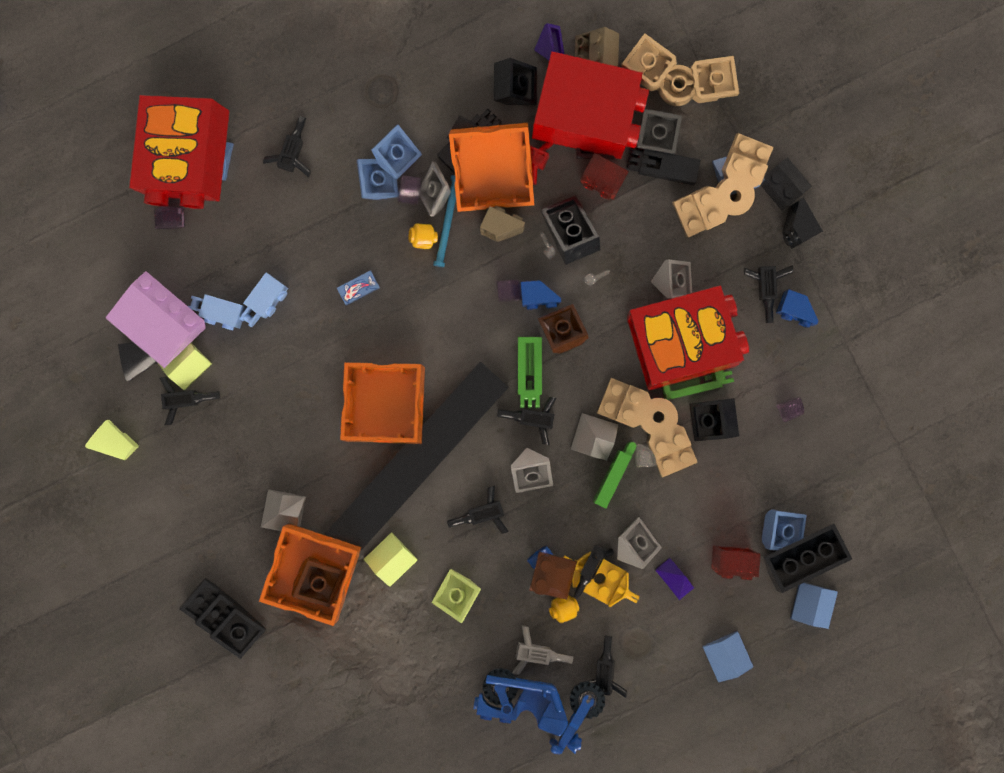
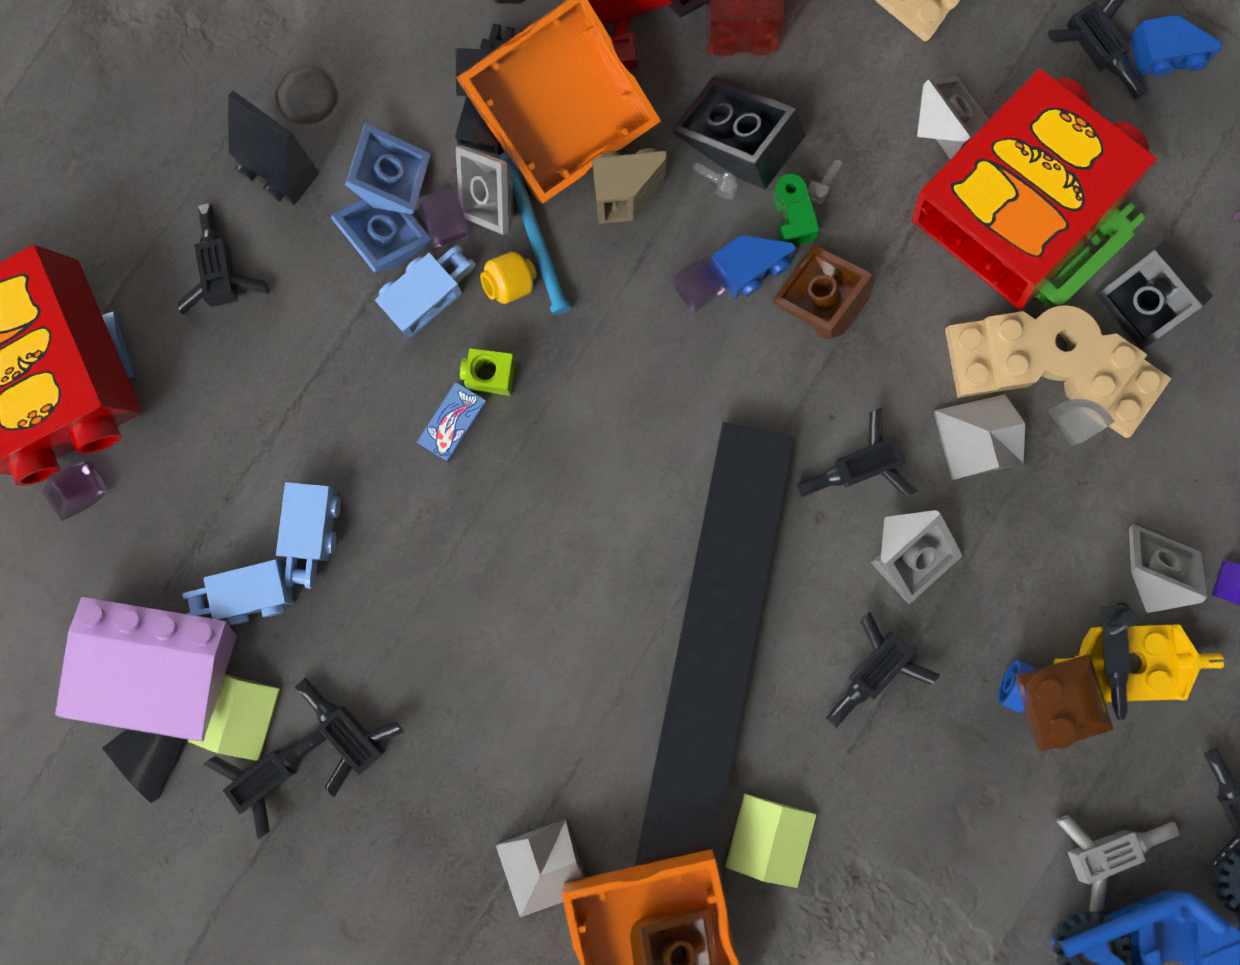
camera: 30 degrees left, 5 degrees down
(112, 441) = (183, 921): yellowish green slope -> none
(229, 402) = (346, 735): none -> black piece
(343, 111) = (267, 151): none -> black slope
(380, 219) = (424, 290): none -> light blue brick
(383, 403) = (604, 583): orange tile -> none
(394, 280) = (502, 380): none -> lime brick
(456, 595) = (919, 835): yellowish green slope -> none
(529, 365) = (804, 380): bright green hinge -> none
(564, 609) = (1112, 751): yellow head -> none
(576, 275) = (796, 209): none -> green leg
(614, 475) = (1053, 477): bright green hinge -> none

